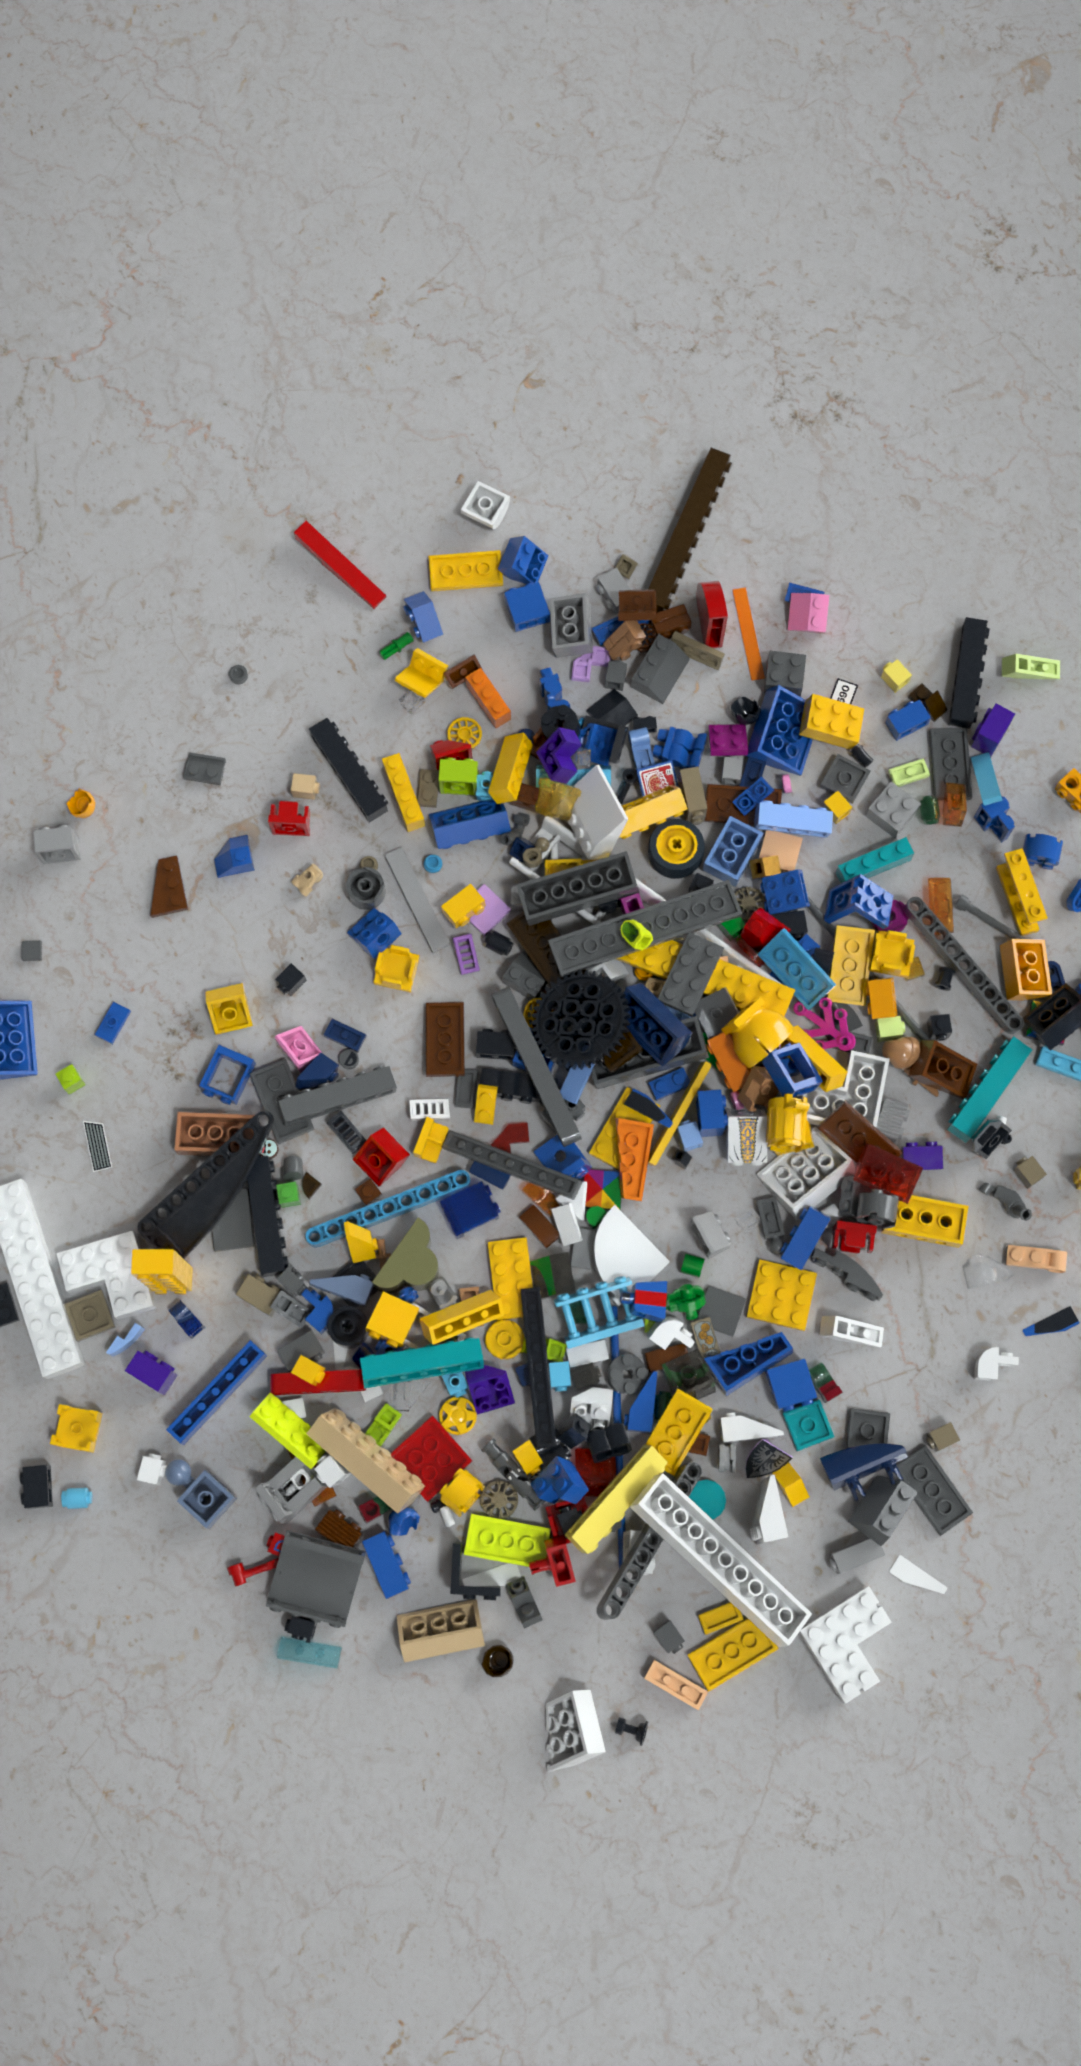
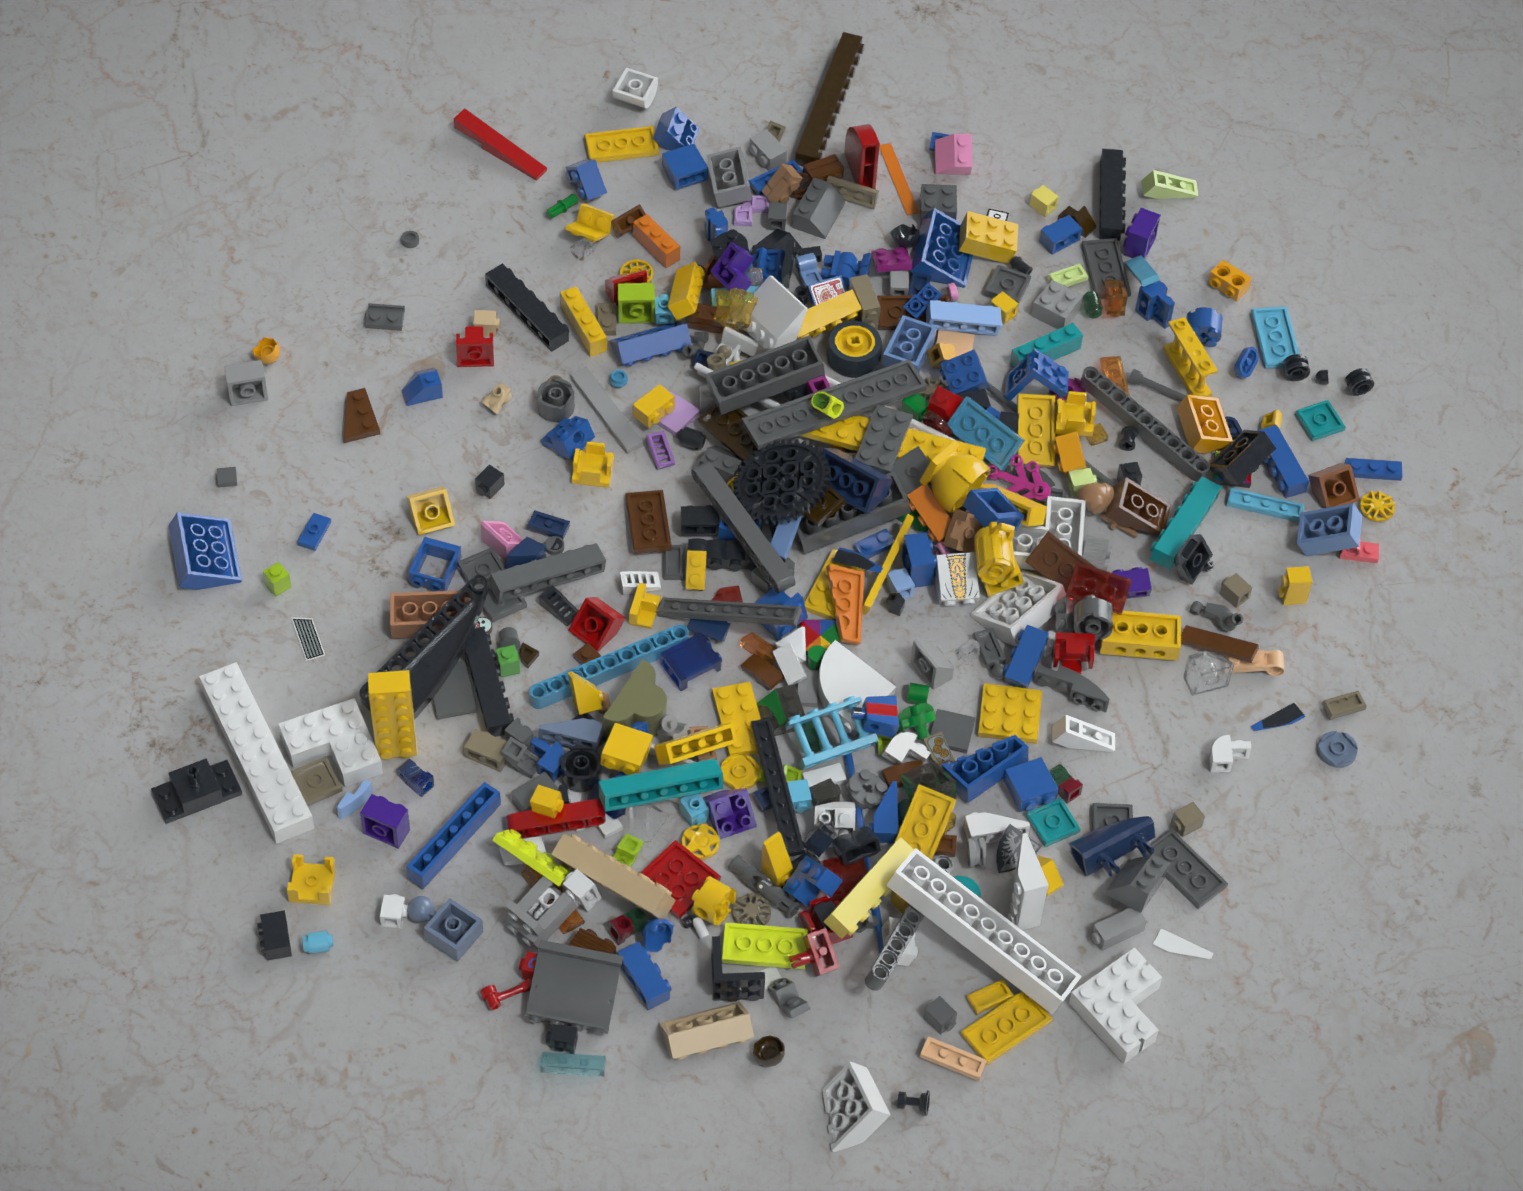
camera: 10 degrees left, 20 degrees down
(330, 1357) = (565, 793): none -> black tile
(637, 605) = (791, 151): reddish brown bracket -> none
(1003, 1236) = (1219, 643): none -> reddish brown tile

